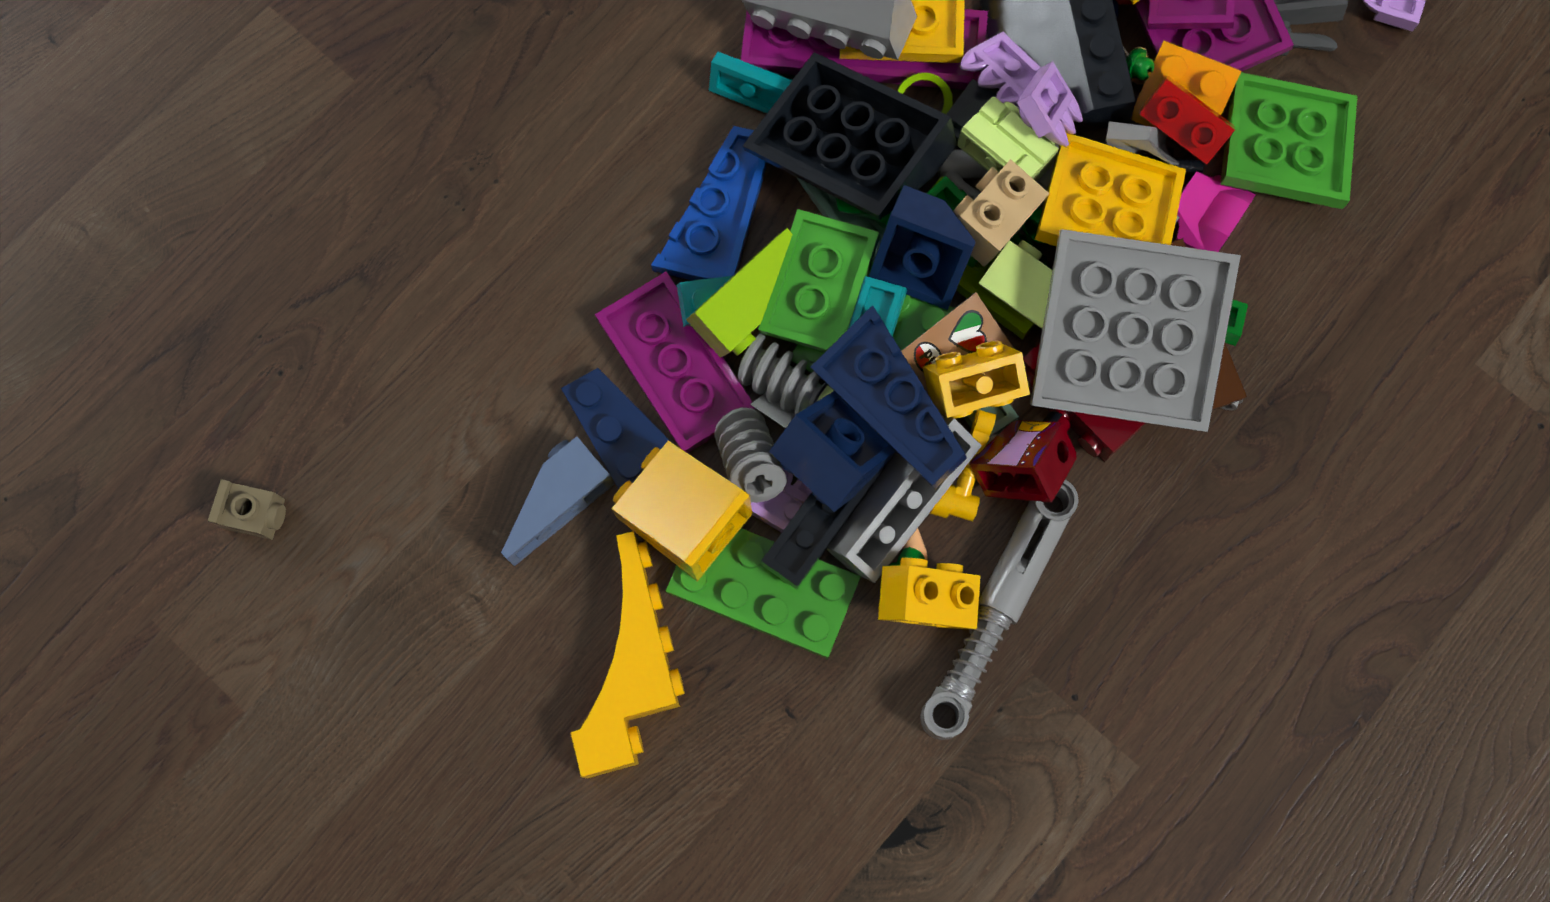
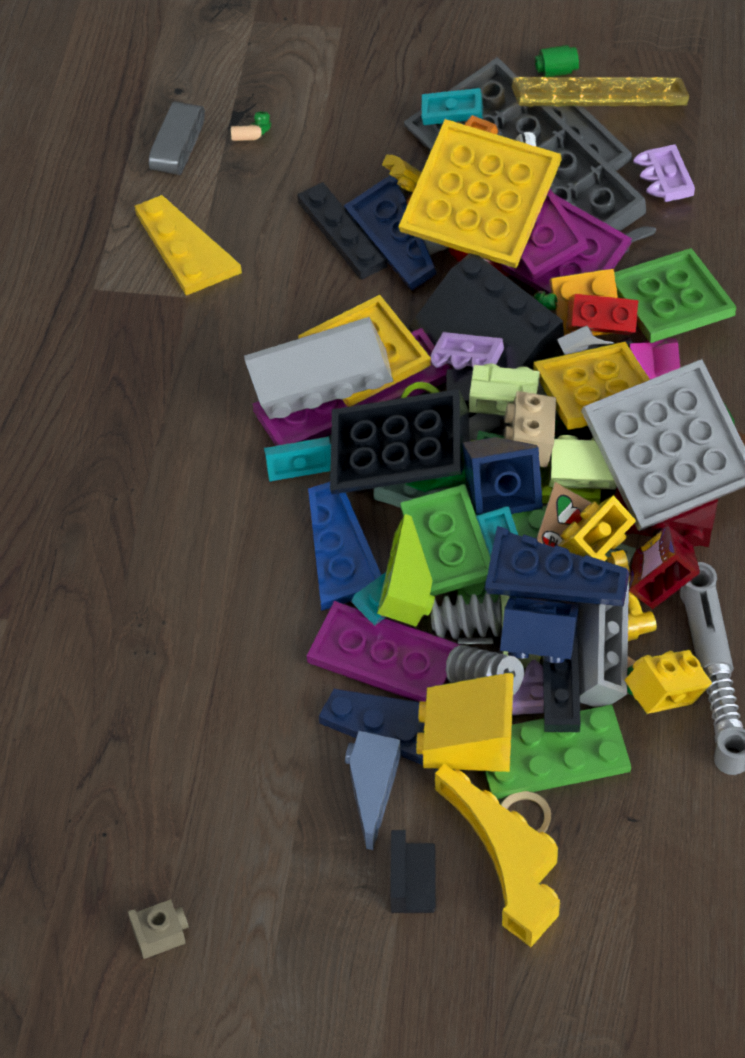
camera: 35 degrees left, 20 degrees down
(525, 622) = (412, 875): none -> black panel
(687, 606) = (525, 795): none -> tan piece
(1049, 106) = (513, 351): lavender plate -> none

